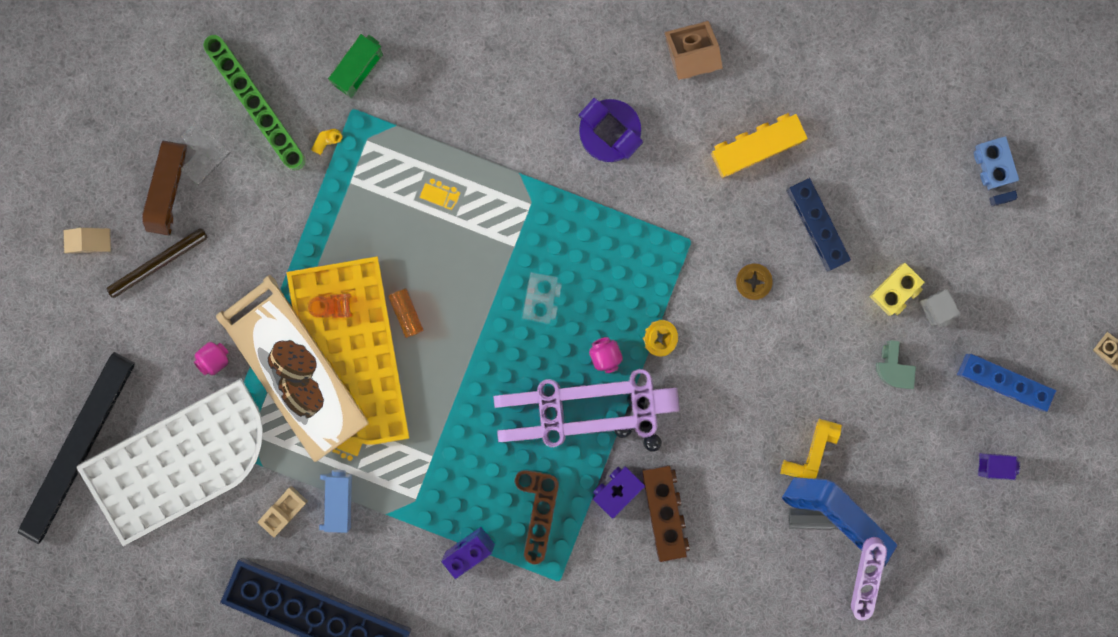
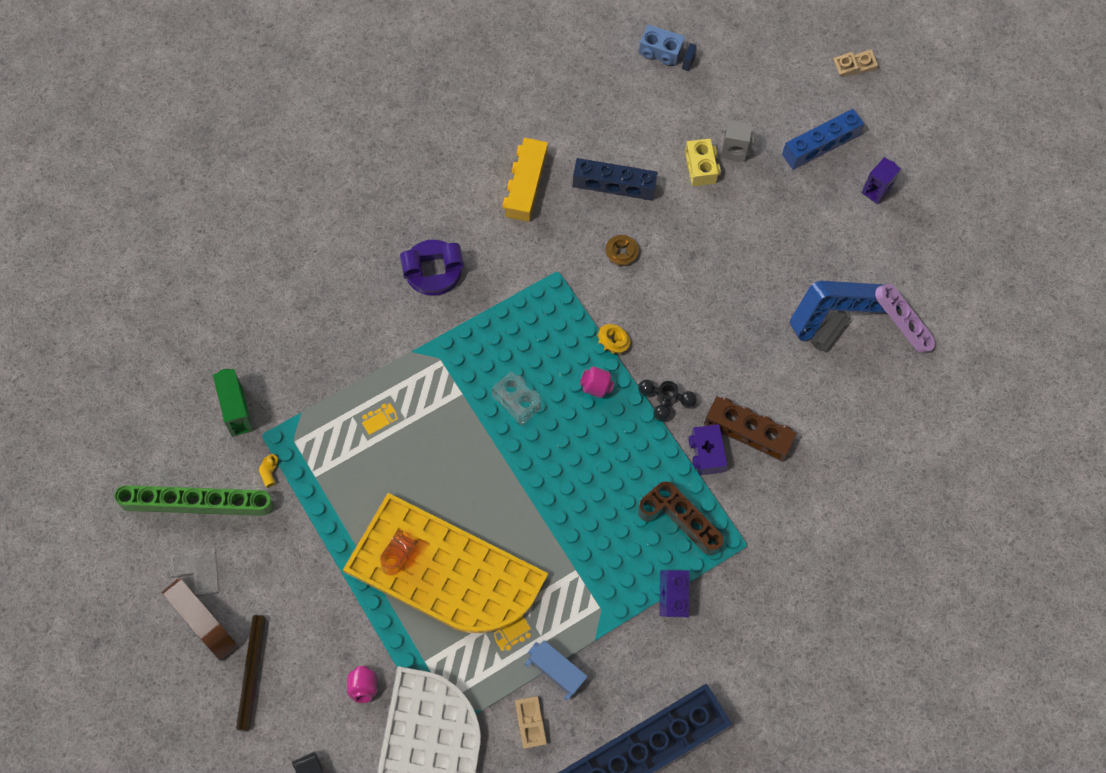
camera: 55 degrees left, 20 degrees down
(87, 240) = (184, 716): tan slope -> none
(294, 371) = (425, 622): flag -> none
(405, 313) = (448, 505): clear orange axle -> none
(660, 402) = (662, 363): lavender beam -> none
(693, 50) = (423, 173): medium nougat slope -> none
(824, 432) = (771, 280): yellow beam -> none
(893, 373) = (758, 205): sand green brick -> none

